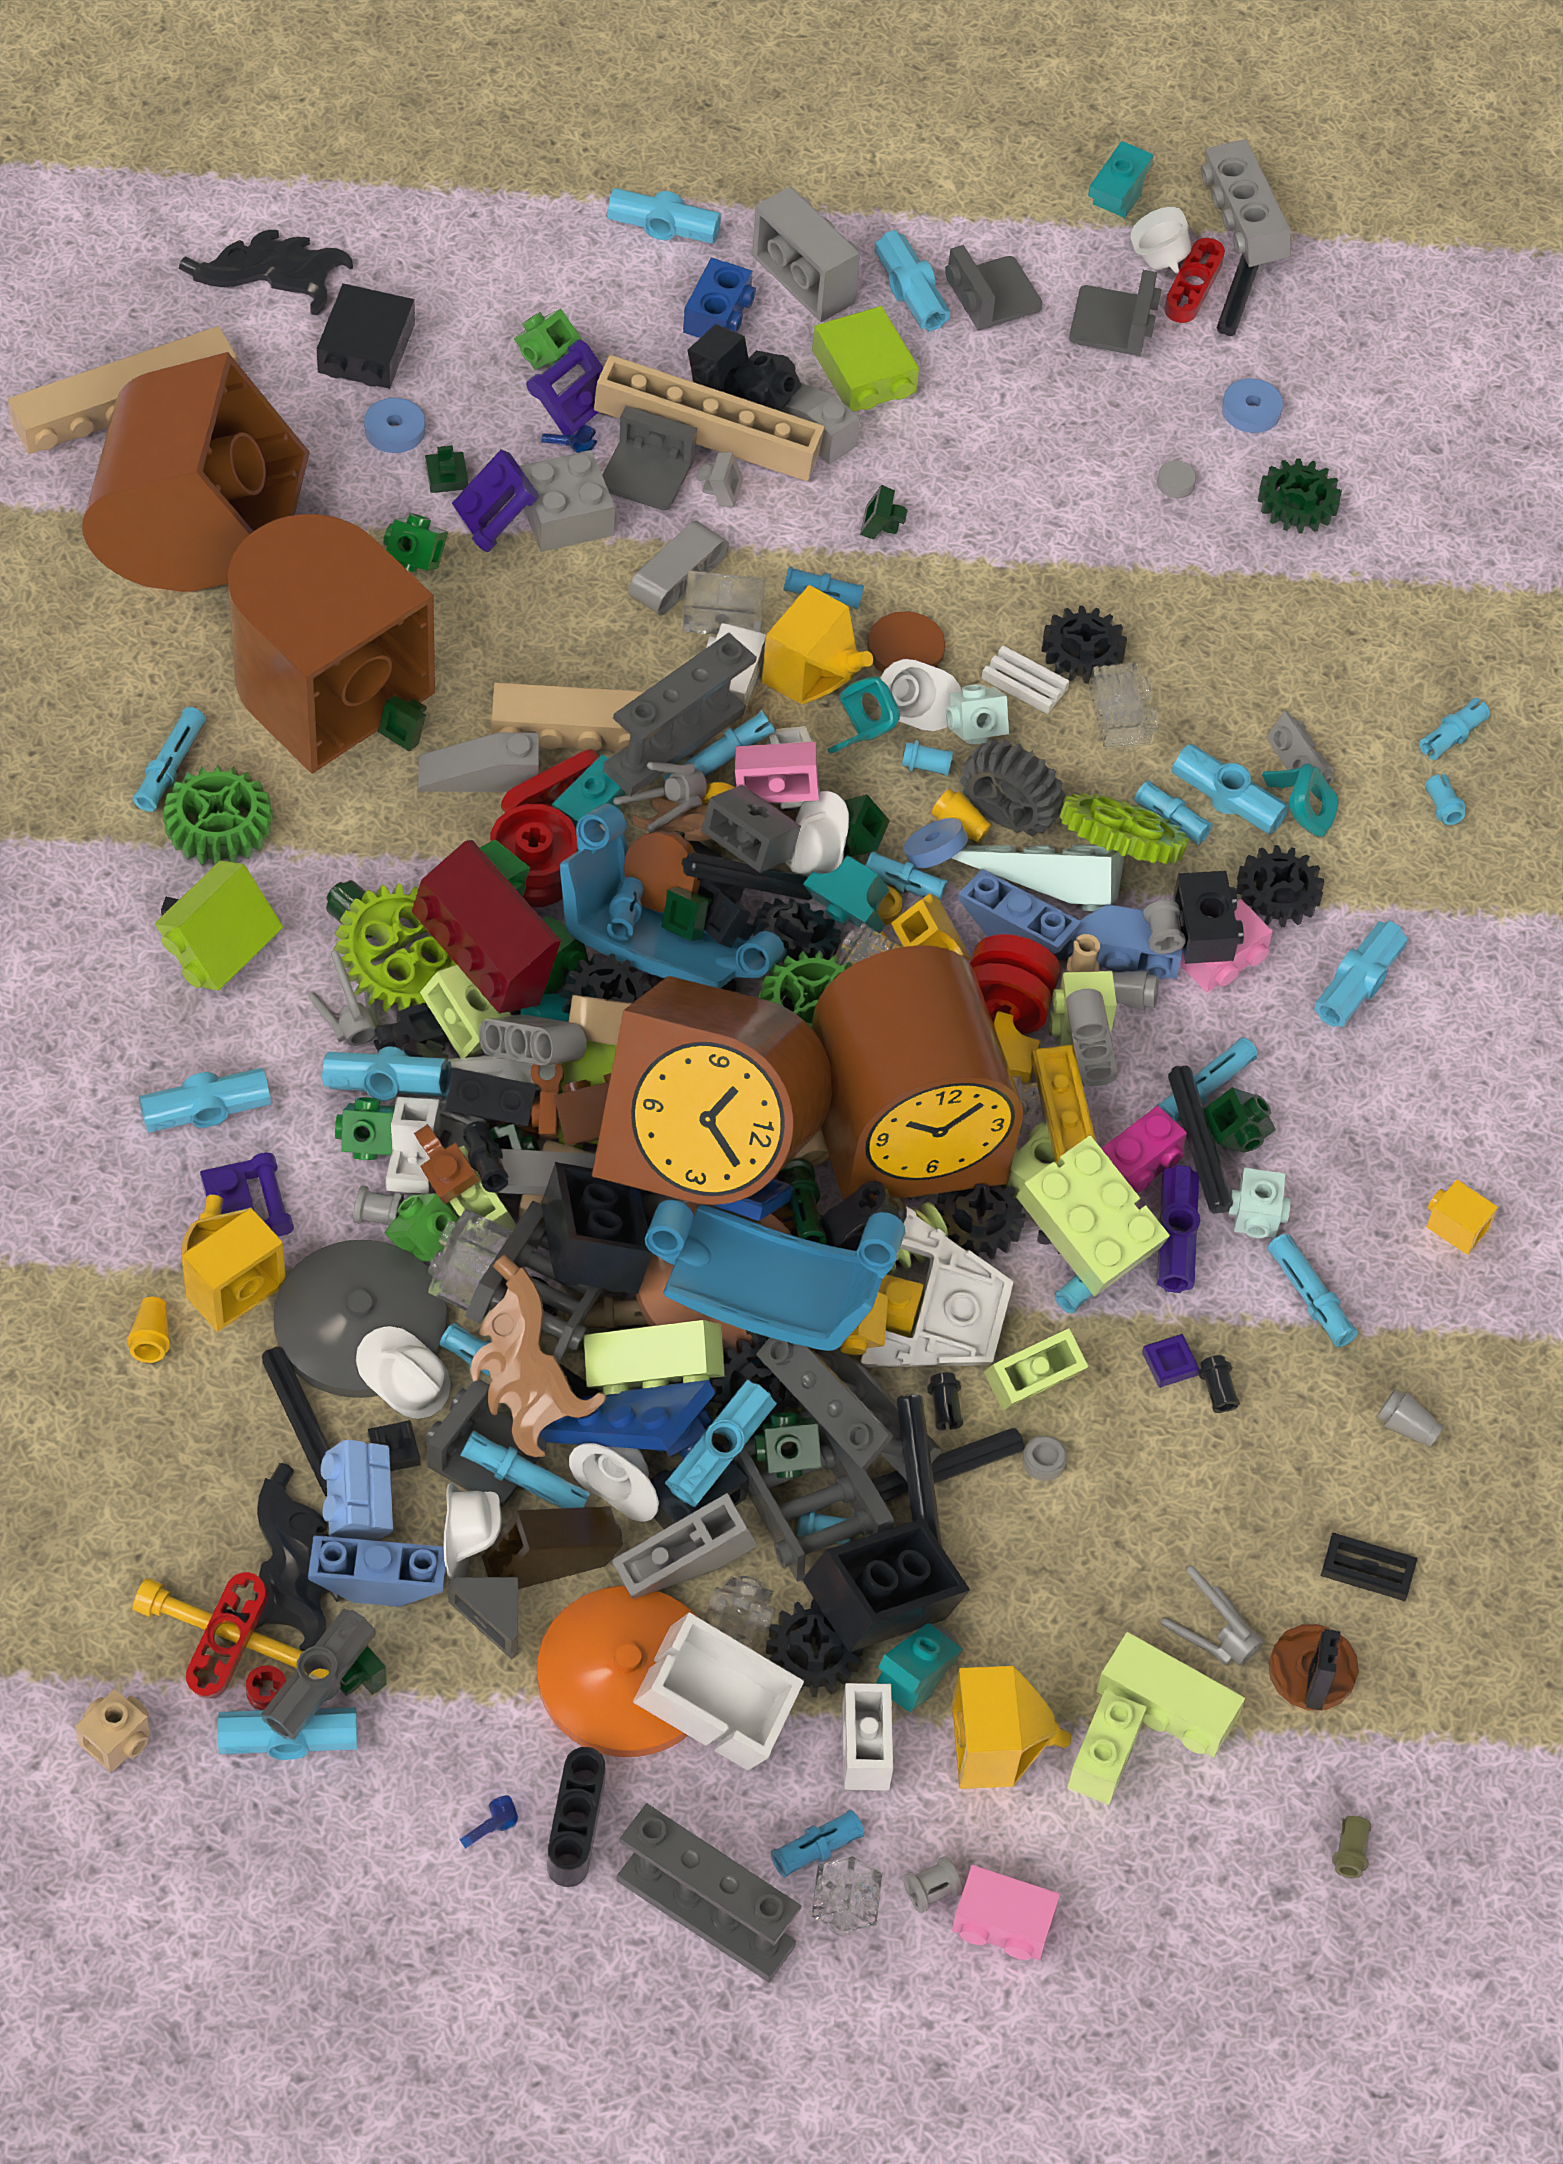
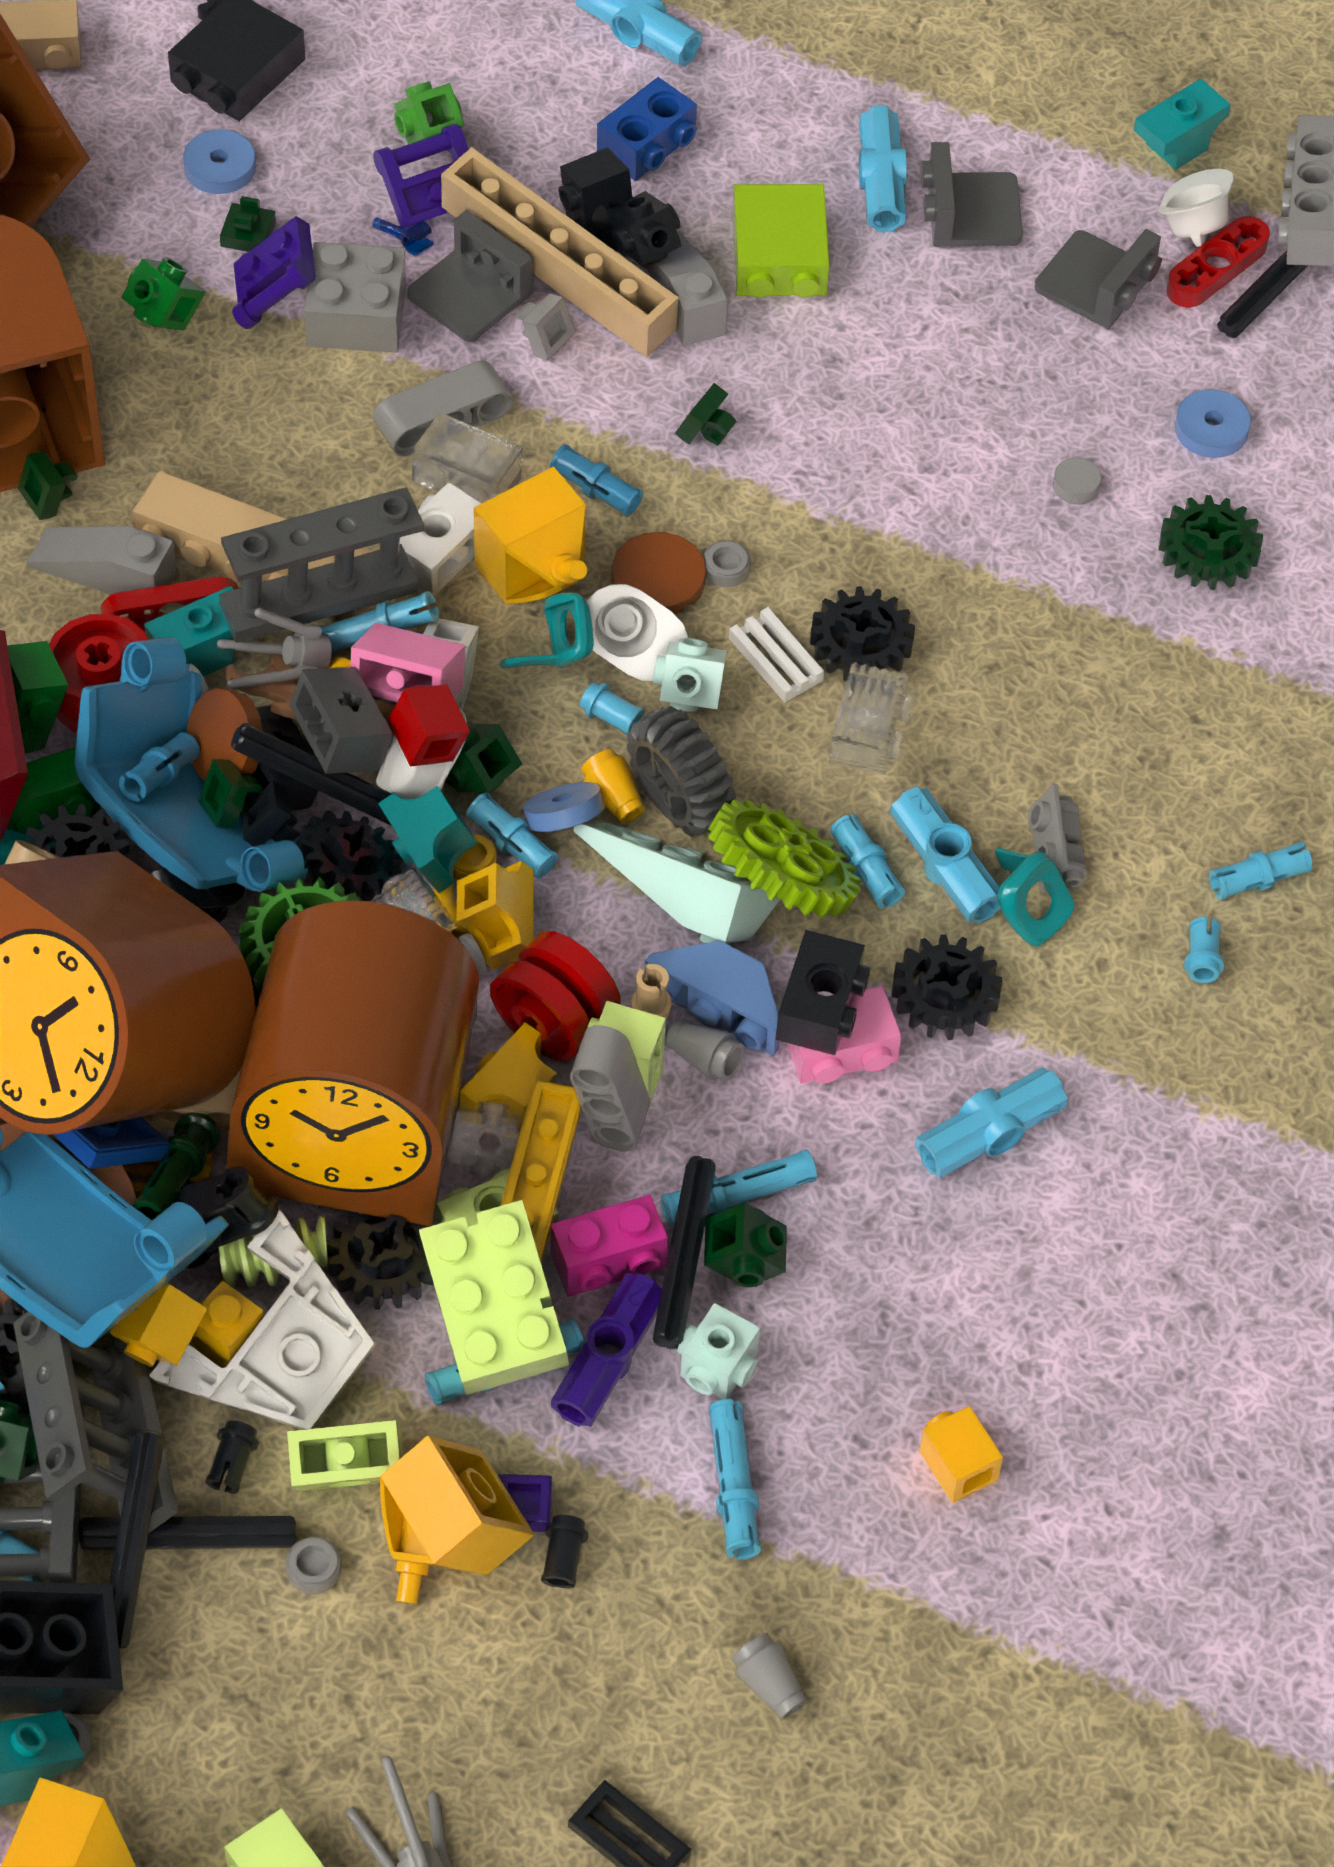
camera: 25 degrees right, 0 degrees up
(805, 254) = (768, 102): light grey brick -> none
(822, 810) = (428, 725): none -> red brick
(953, 621) = (727, 563): none -> light grey tile
(1009, 910) = (607, 918): medium blue slope -> none
(1131, 1388) = (447, 1512): none -> yellow piece
(1164, 926) = (765, 987): light grey bush -> none

